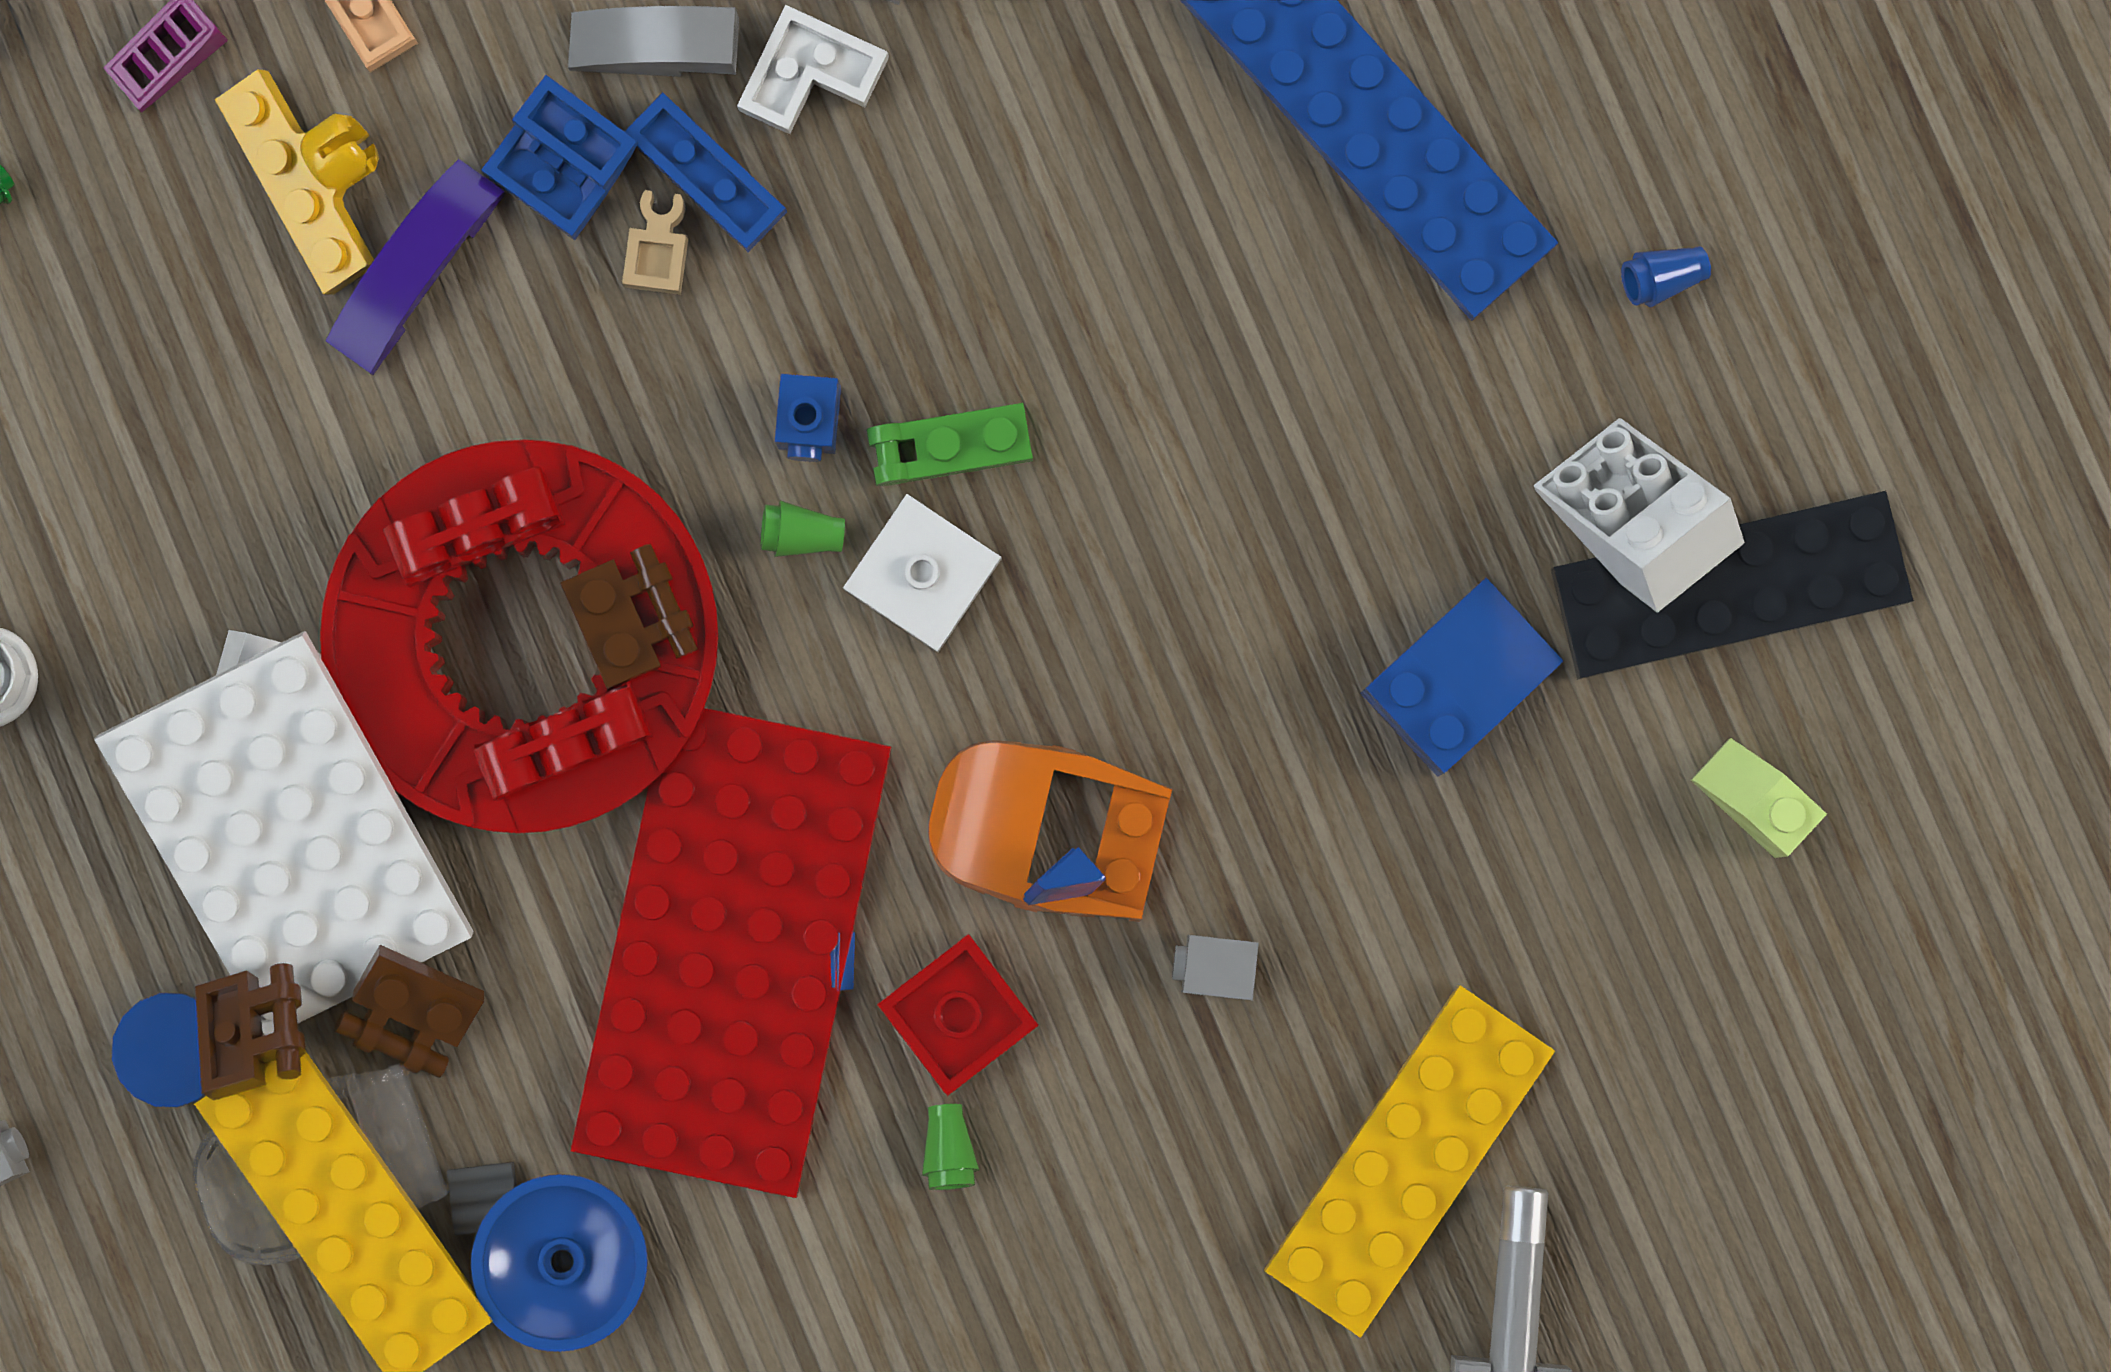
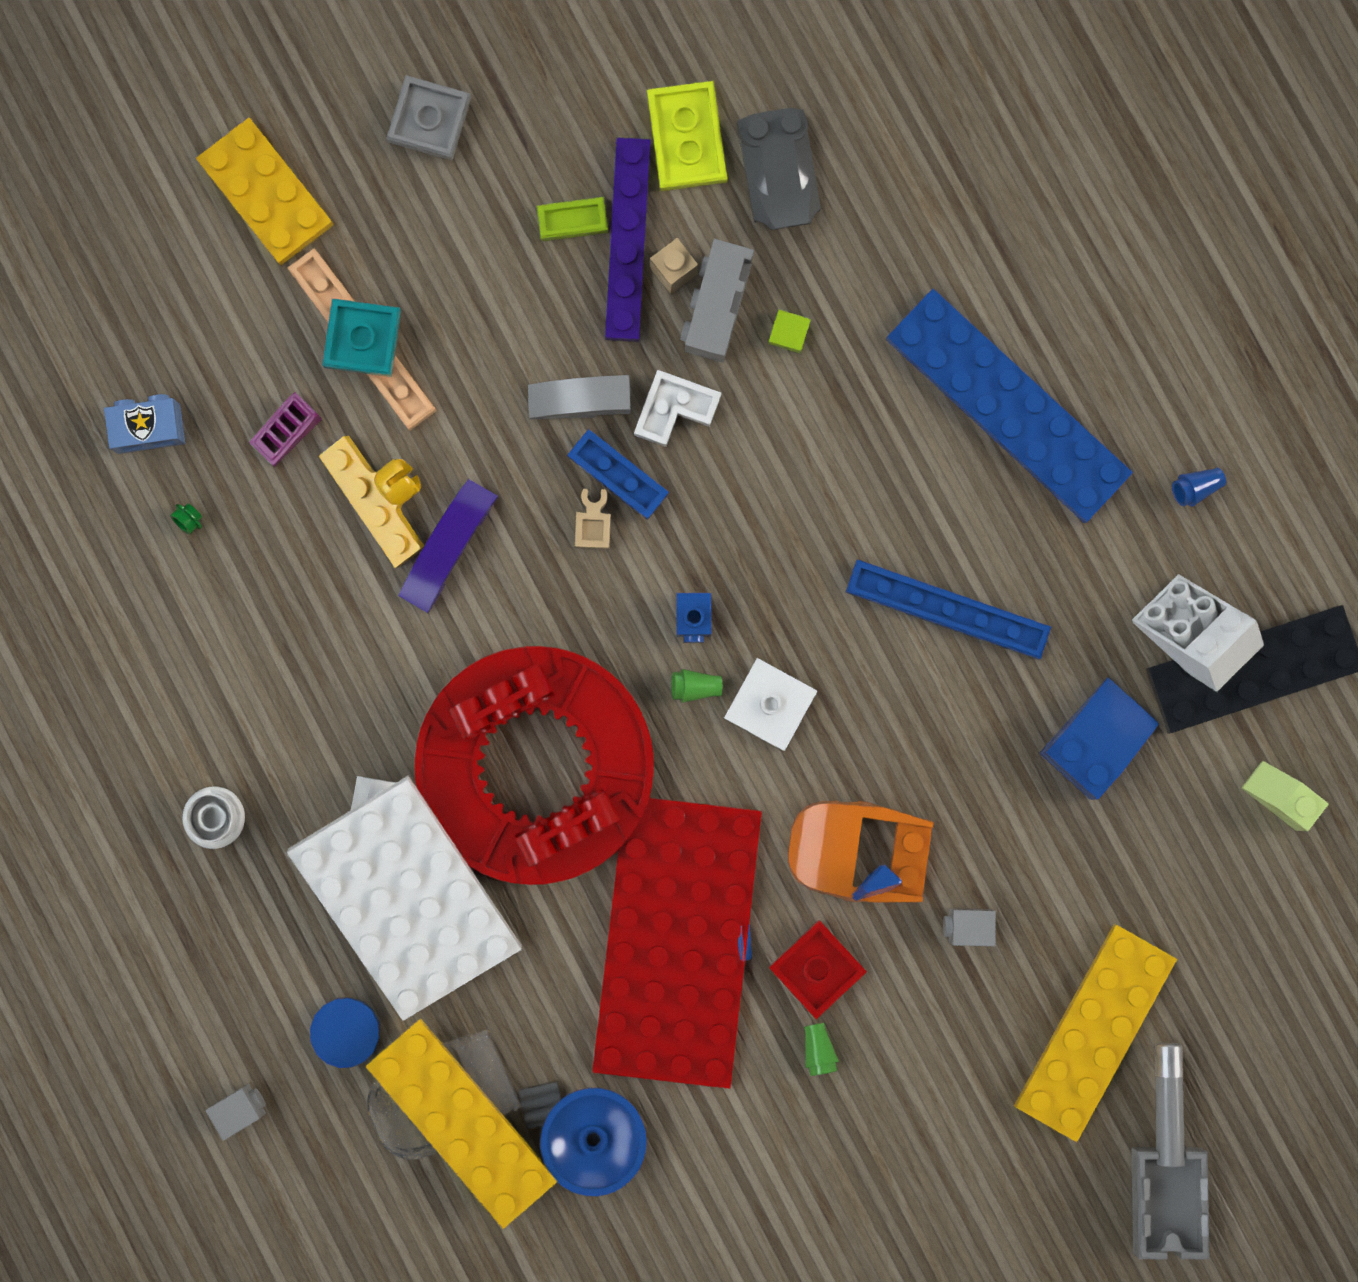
camera: 10 degrees left, 0 degrees up
(231, 1031) = (384, 1020): reddish brown plate -> none
(416, 997) = (491, 988): reddish brown plate -> none
(560, 157) = (530, 473): blue slope -> none
(612, 624) = (590, 753): reddish brown plate -> none
(952, 444) = (781, 625): bright green plate -> none
(1231, 442) = (948, 609): none -> blue tile

